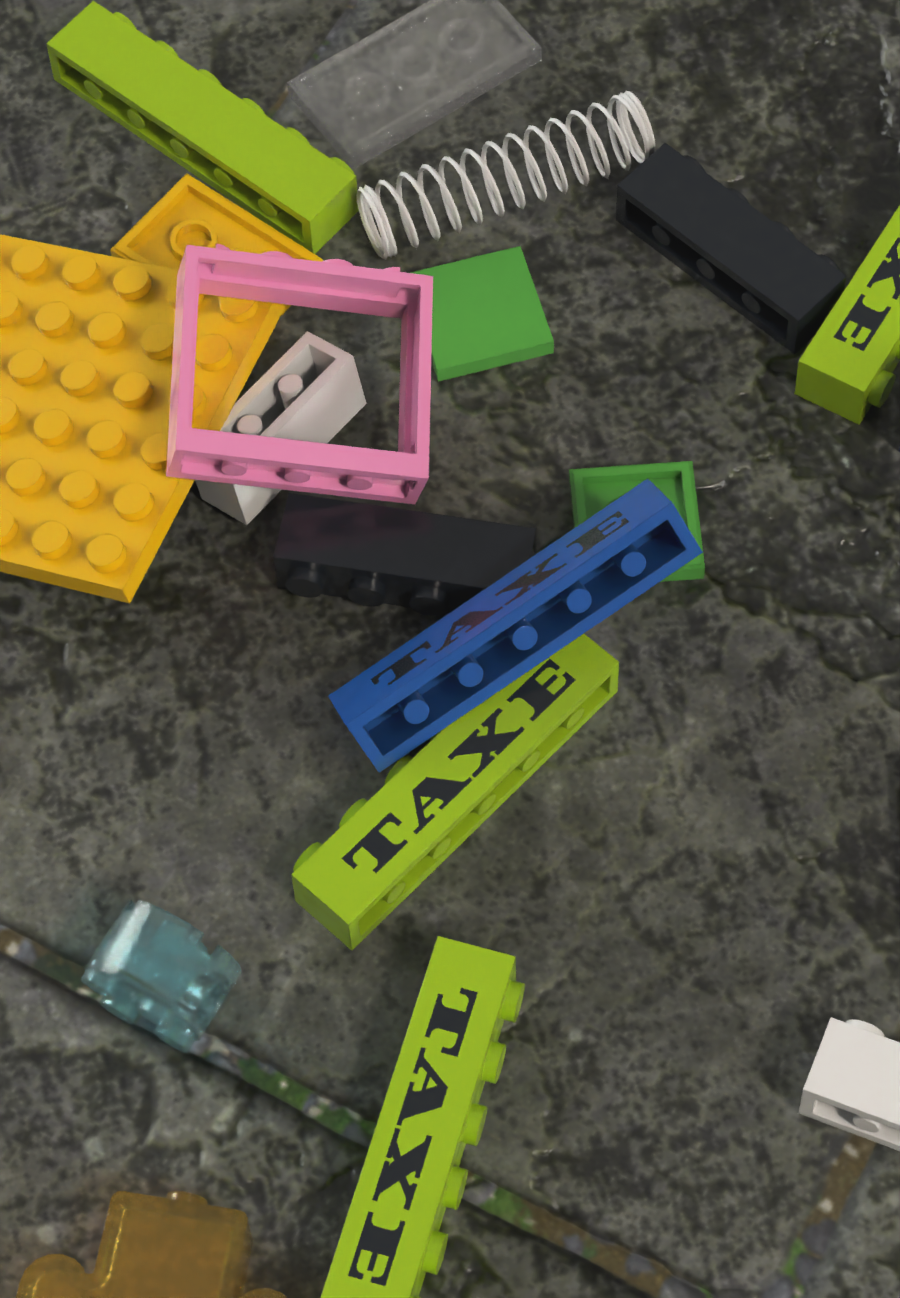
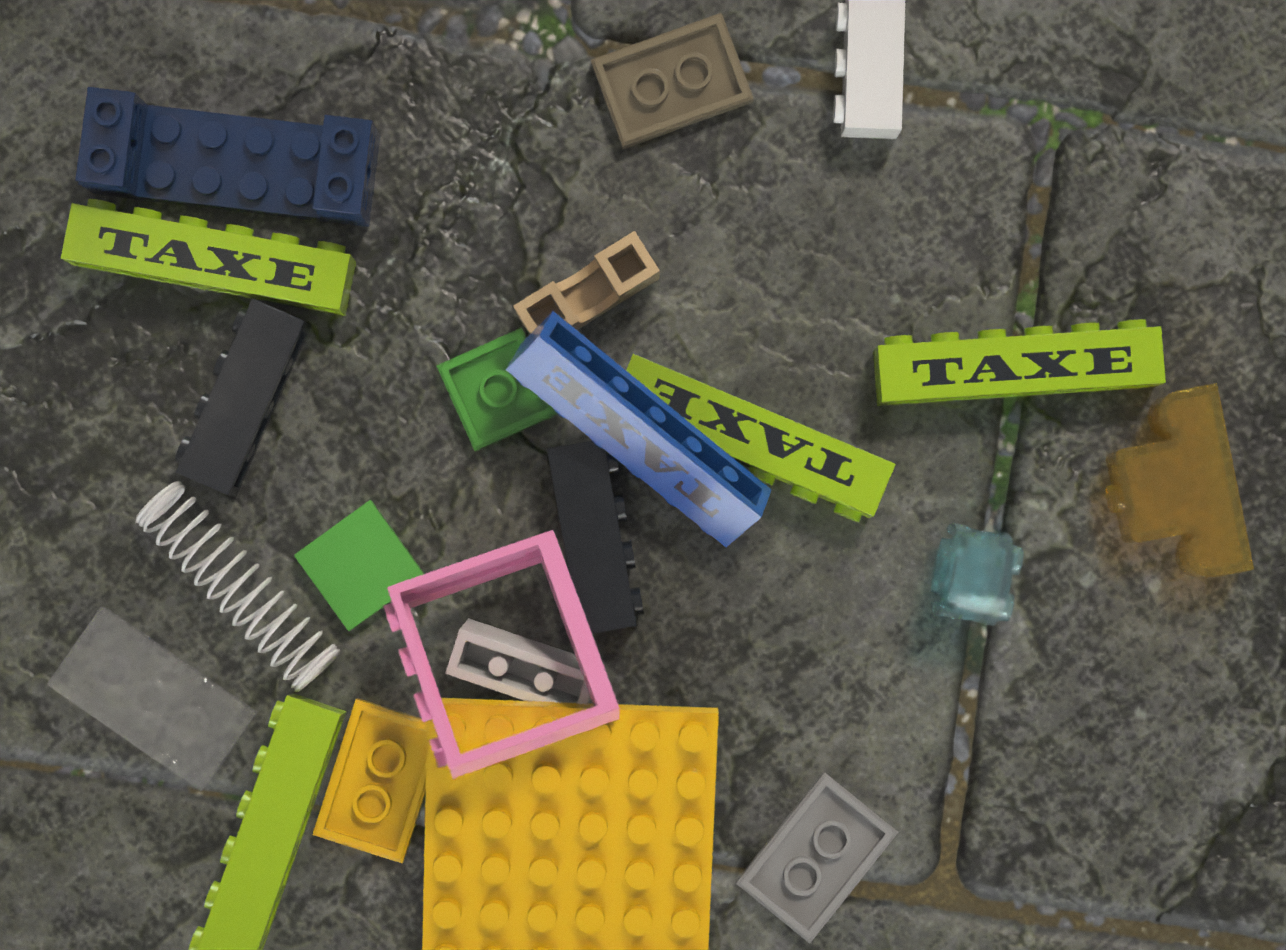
camera: 115 degrees left, 25 degrees up
(724, 667) = (595, 289): none -> tan arch

